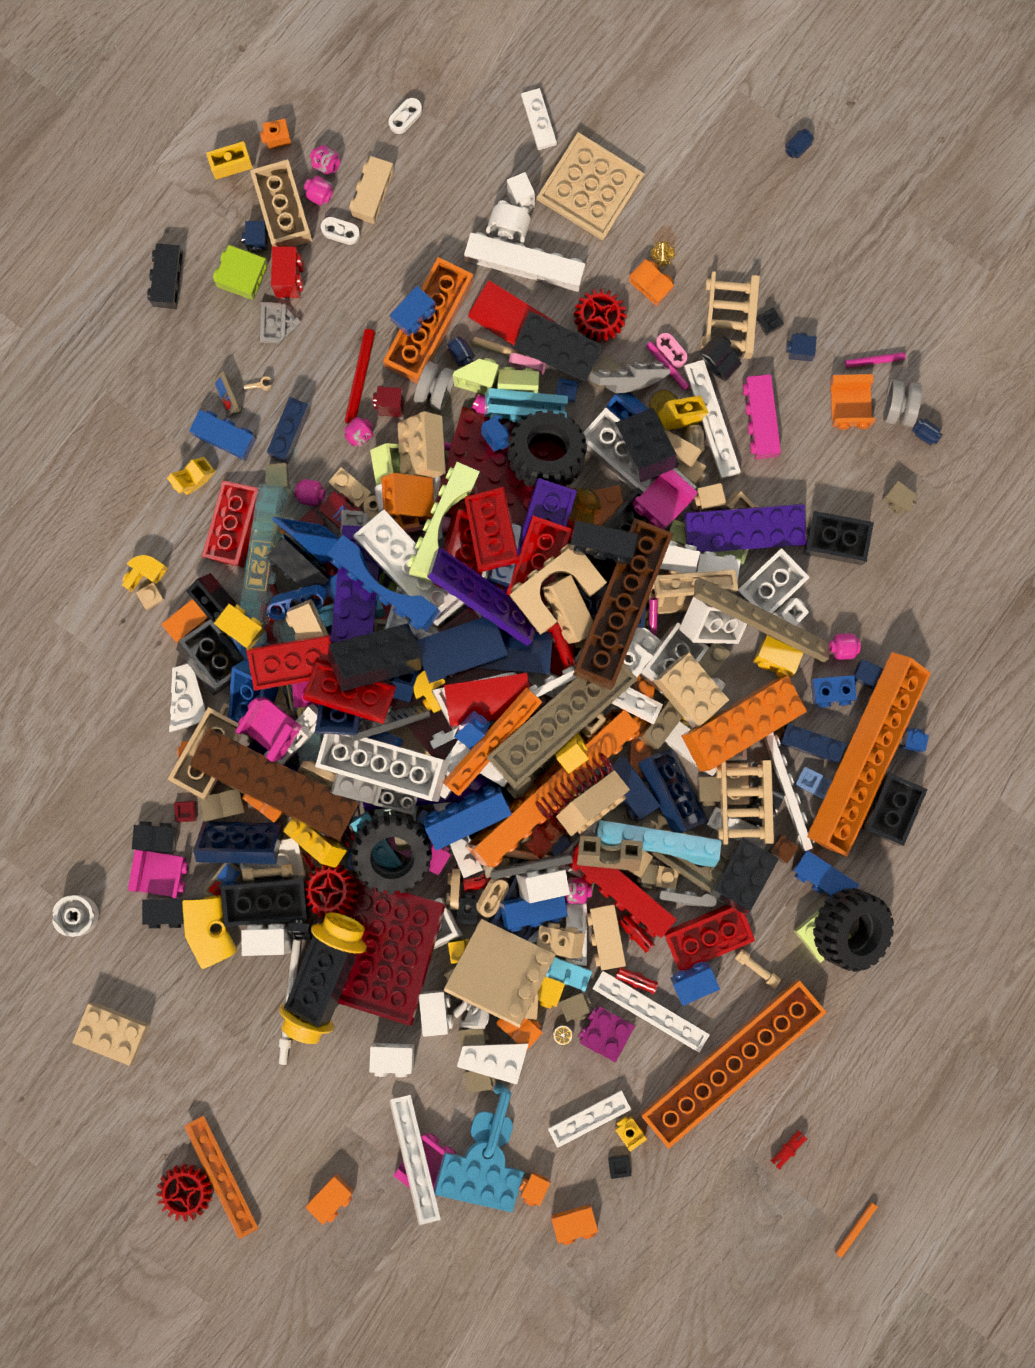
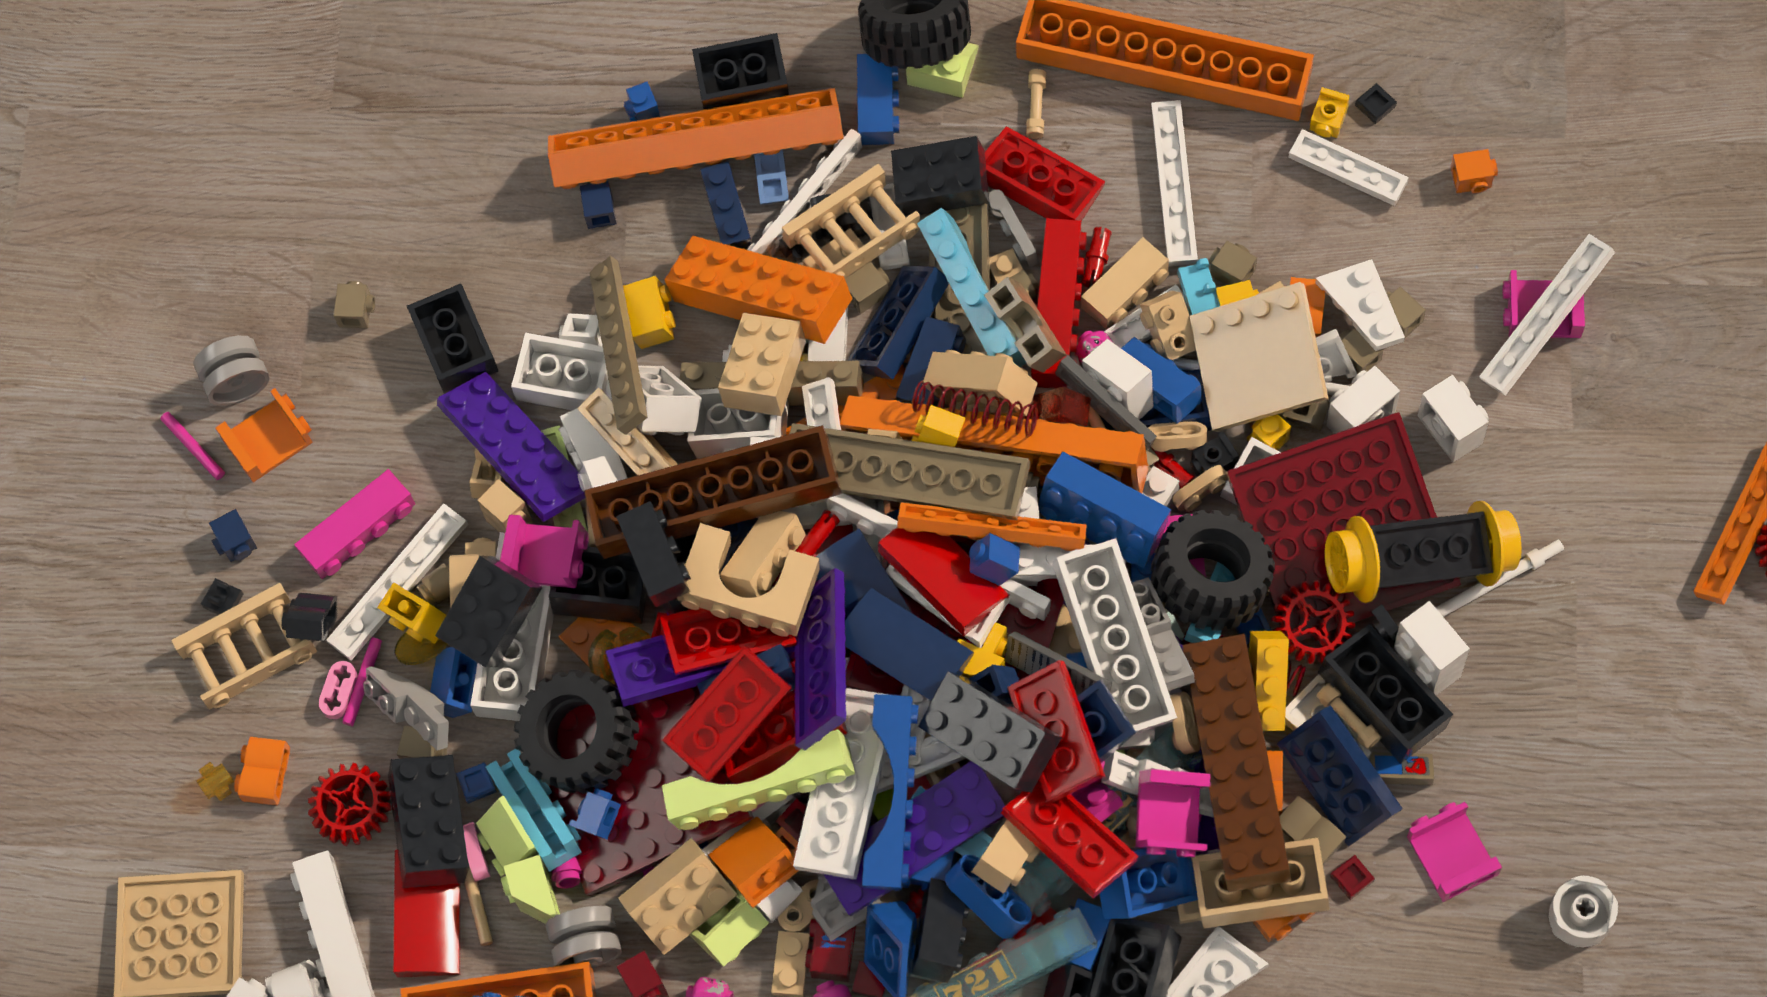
camera: 120 degrees left, 15 degrees down
(111, 1033) = (1687, 766): tan brick -> none
(154, 837) = (1413, 887): black brick -> none
(163, 912) = (1486, 796): black brick -> none
(207, 945) = (1490, 729): yellow panel -> none
(239, 626) = (1070, 941): yellow brick -> none
(330, 1199) = (1669, 382): orange brick -> none
(460, 351) = (514, 944): dark blue brick -> none
(482, 1178) = (1502, 233): dark azure plate -> none
(562, 1035) = (1276, 259): tile -> none
(574, 1224) = (1477, 104): orange brick -> none
(606, 1033) = (1237, 214): magenta plate -> none
(623, 974) = (1148, 214): red pin -> none
(694, 983) = (1105, 154): blue brick -> none
(783, 849) = (876, 153): reddish brown brick -> none
(833, 690) = (645, 229): blue brick -> none
(845, 646) = (581, 249): dark pink head -> none
(927, 431) = (248, 322): dark blue brick -> none

